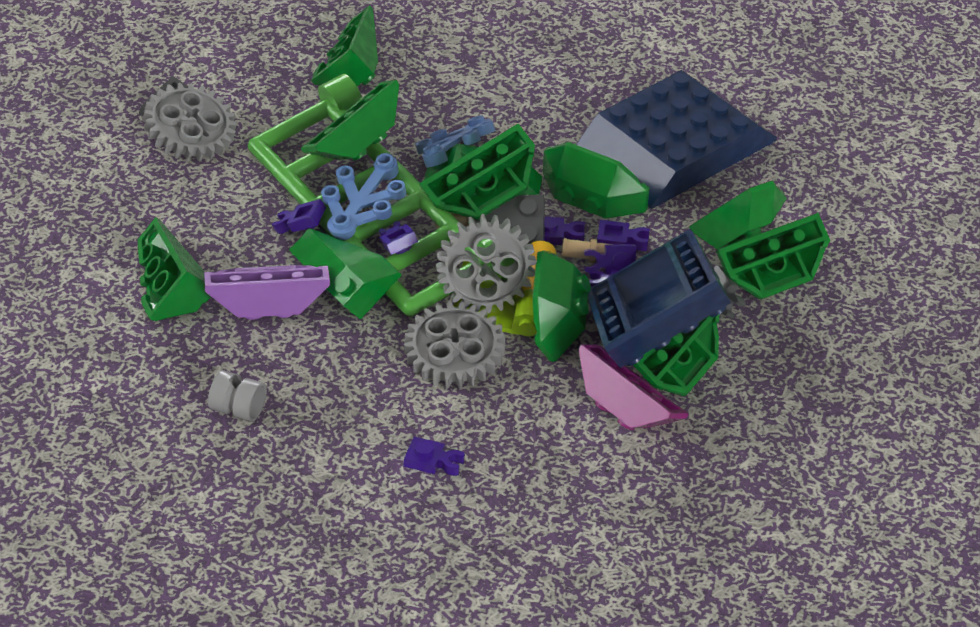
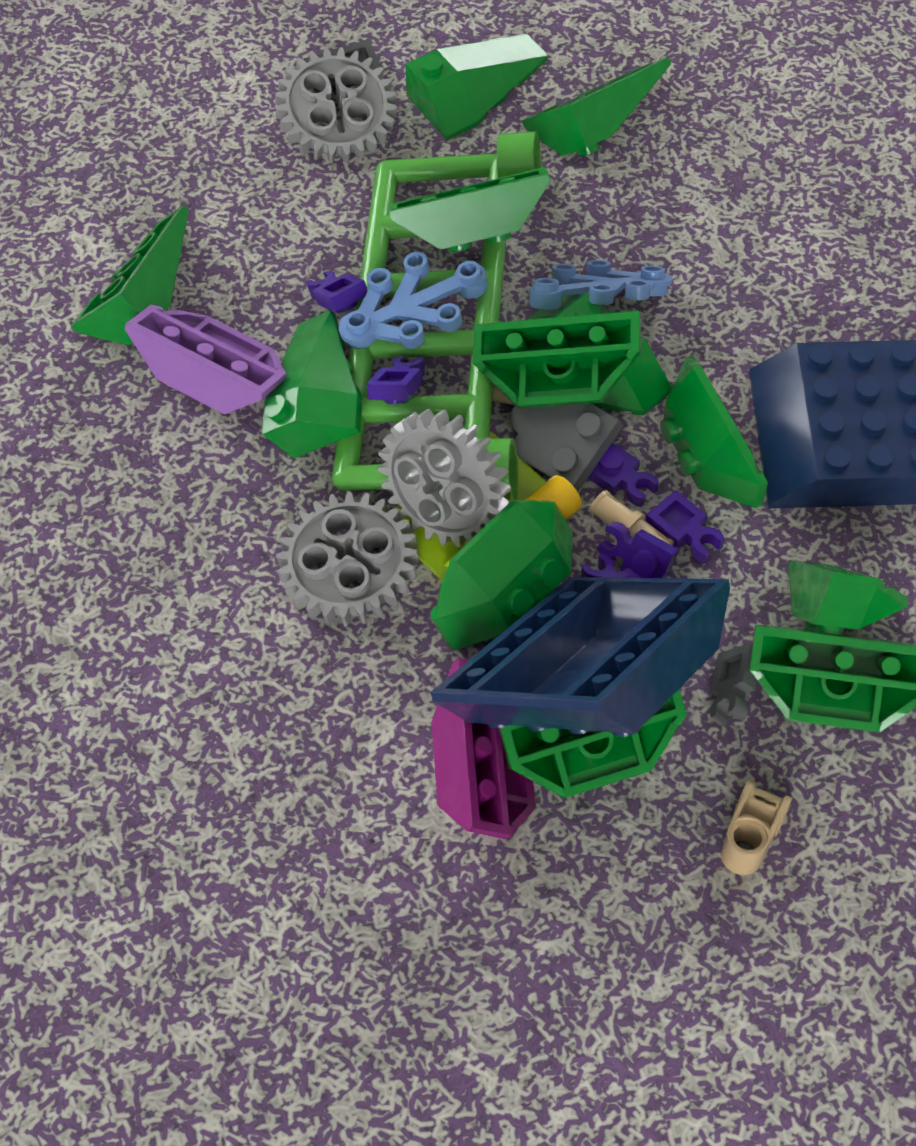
camera: 40 degrees right, 15 degrees up
(241, 397) = (53, 480): light grey wheel -> none
(255, 75) = (465, 81): none -> green wedge
(430, 455) = (190, 686): dark purple plate -> none
(796, 351) = (754, 821): none -> tan piece

